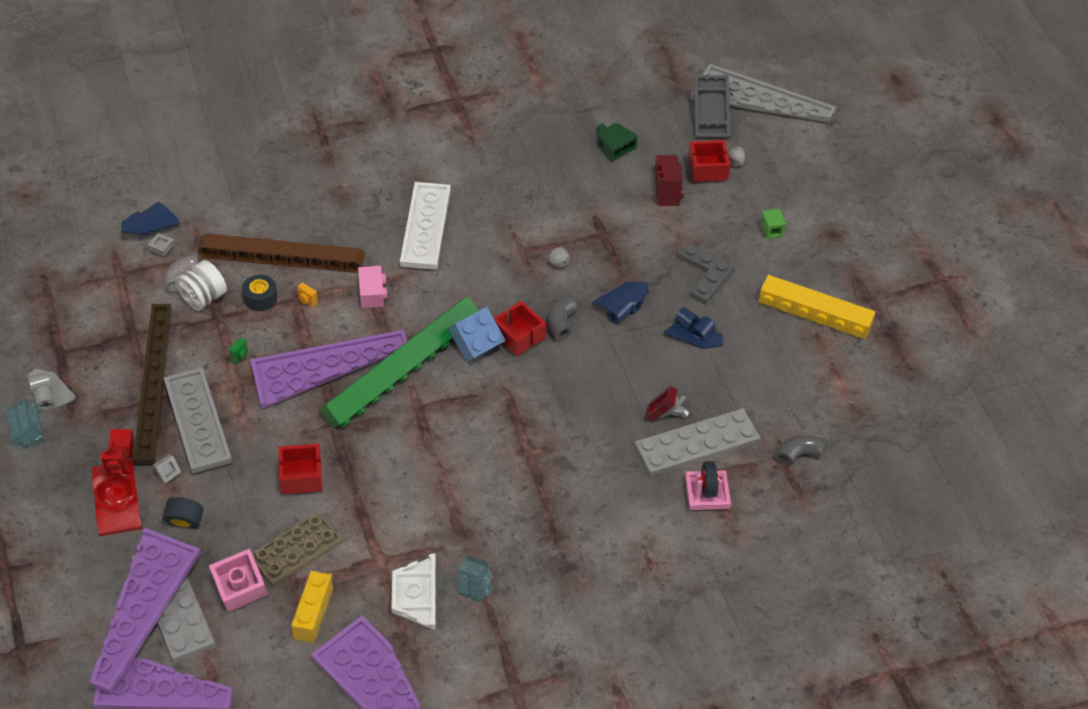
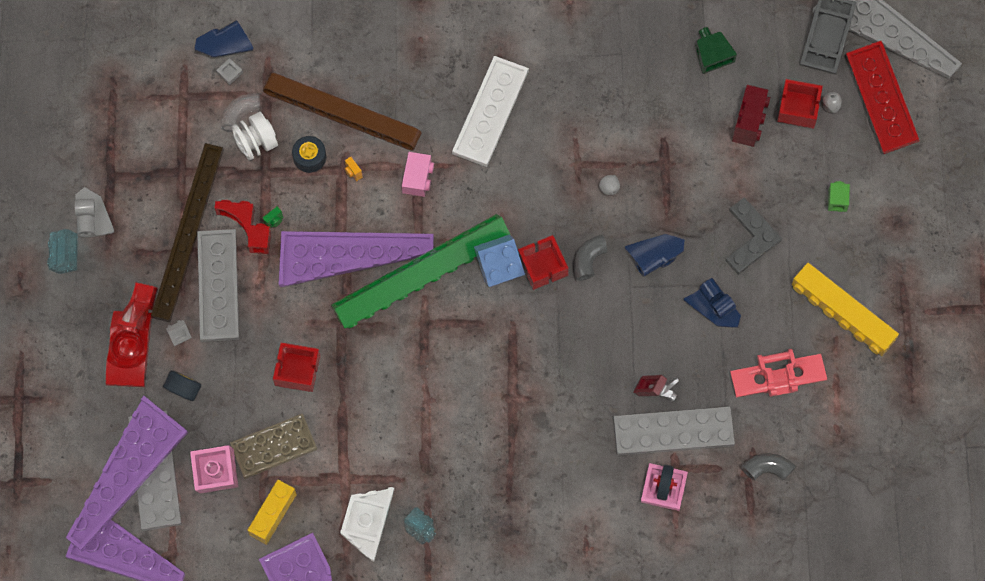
camera: 20 degrees right, 20 degrees up
(206, 355) = (243, 213): none -> red arch
(779, 144) = (882, 97): none -> red plate
(780, 377) = (781, 380): none -> coral piece

